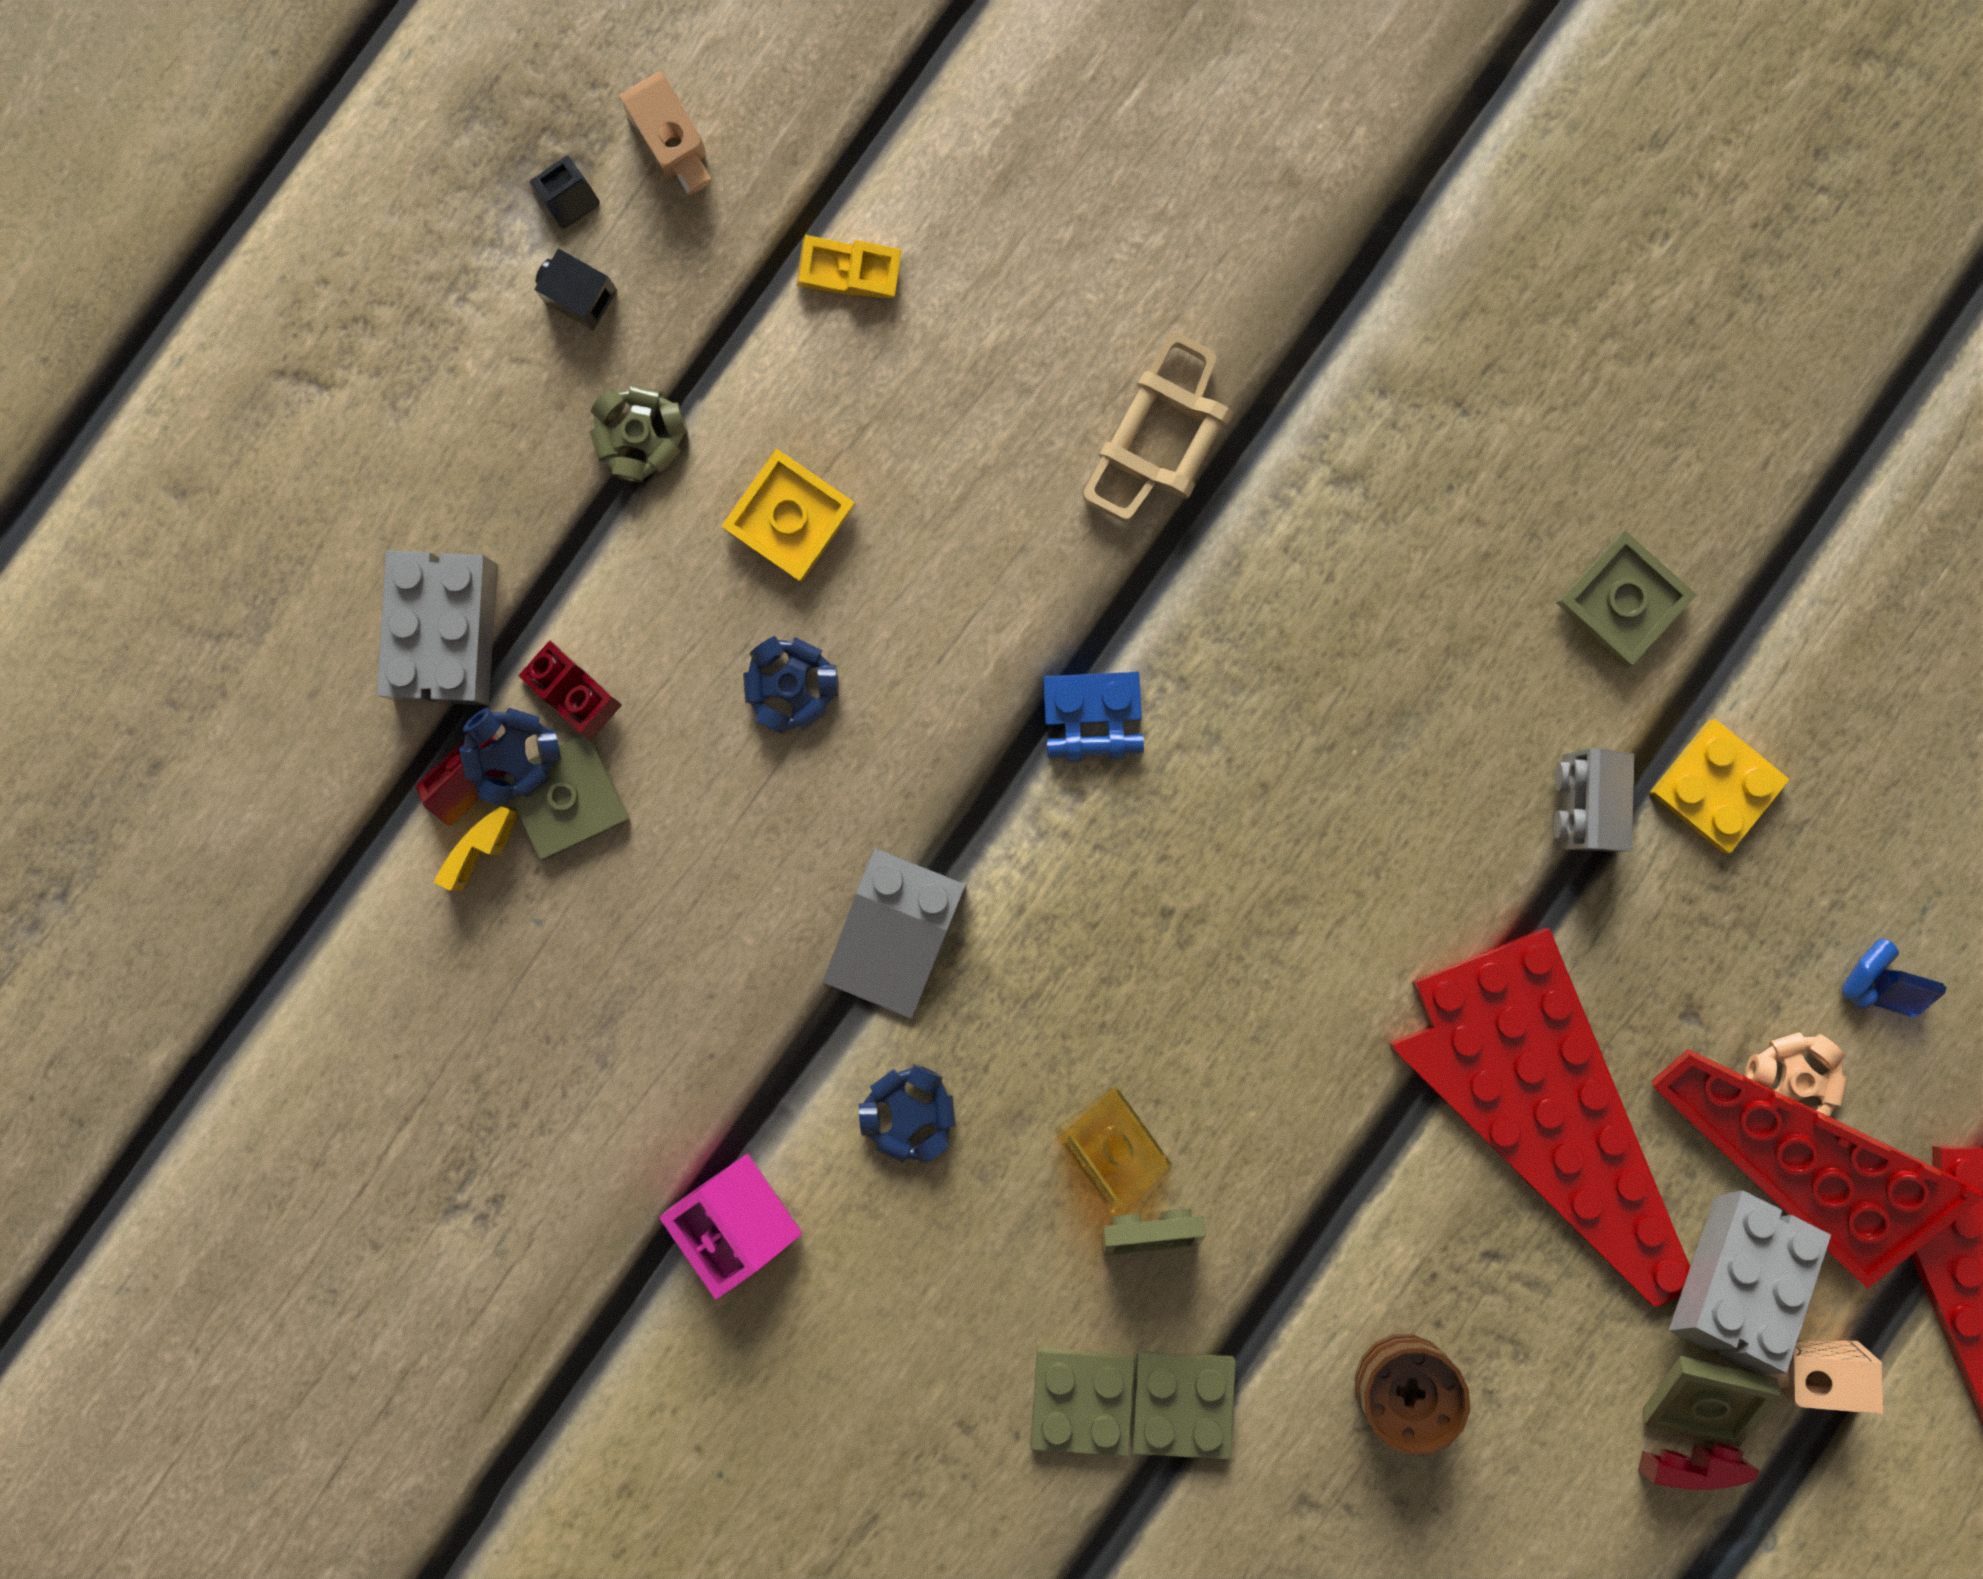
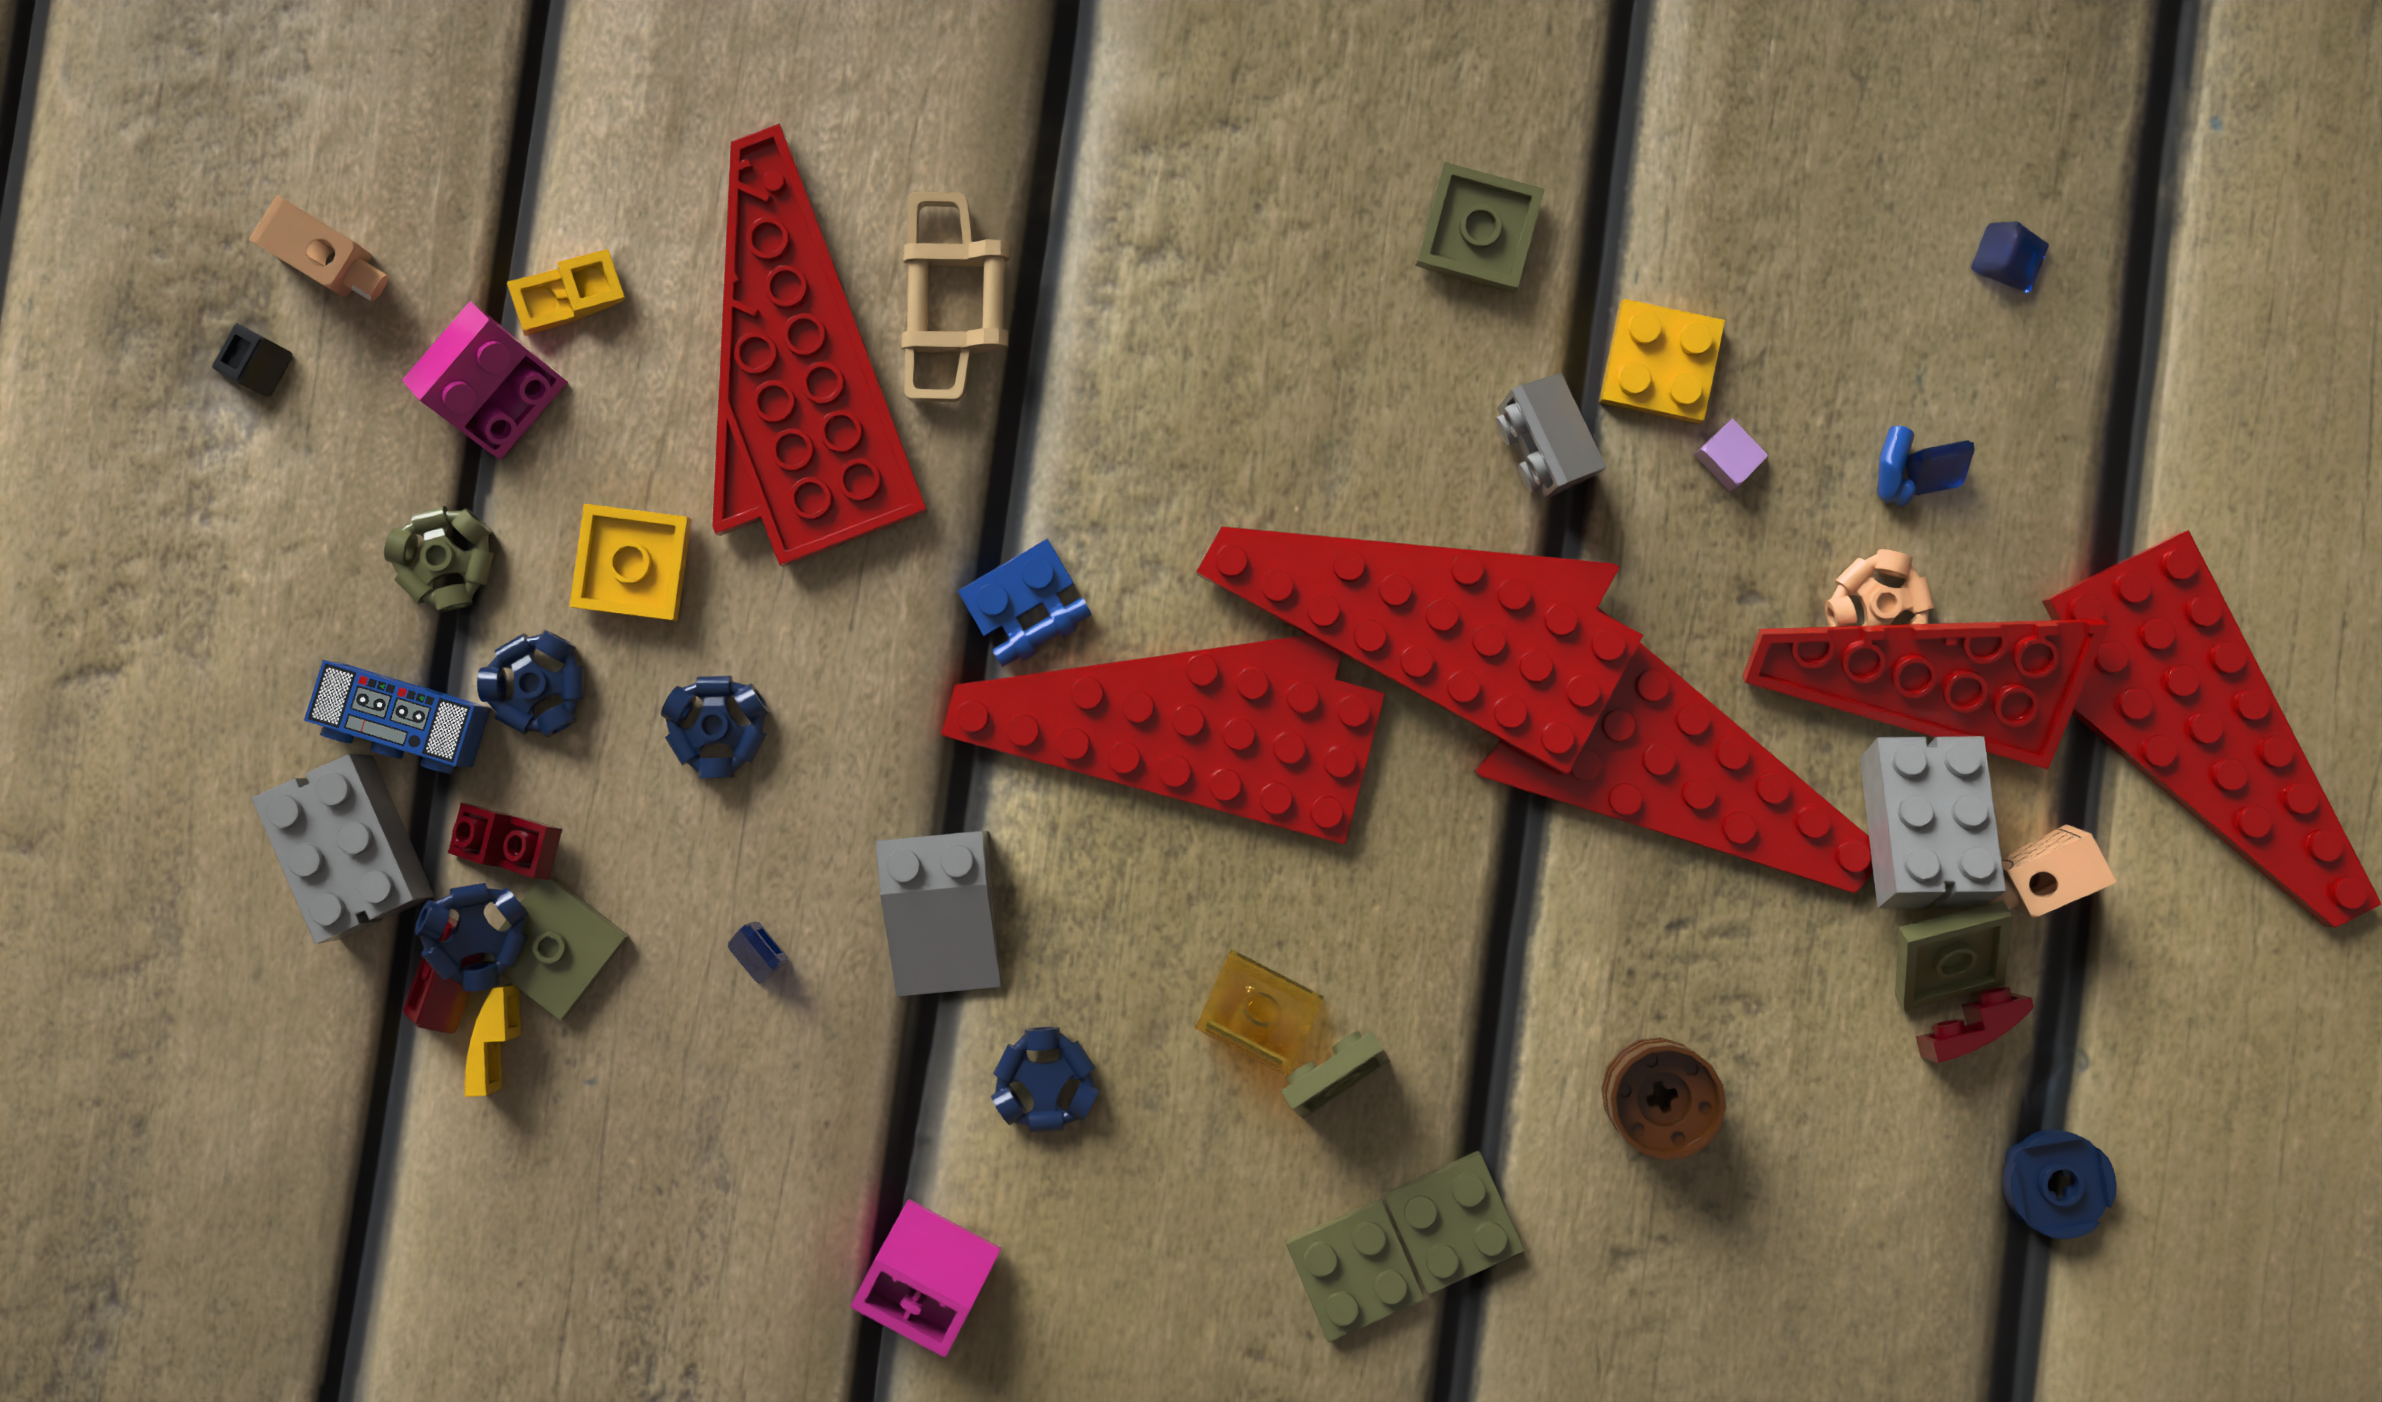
camera: 25 degrees left, 0 degrees up
(534, 543) = (396, 716): none -> brick
(574, 288) = (308, 449): black brick -> none
(658, 574) = (533, 684): none -> dark blue piece
(727, 887) = (757, 951): none -> clear blue slope
(746, 306) = (484, 381): none -> dark pink slope
(995, 453) = (798, 398): none -> red wing
(1203, 901) = (1218, 727): none -> red wing
(1450, 929) = (1470, 630): none -> red wing
(1736, 893) = (1731, 455): none -> lavender slope

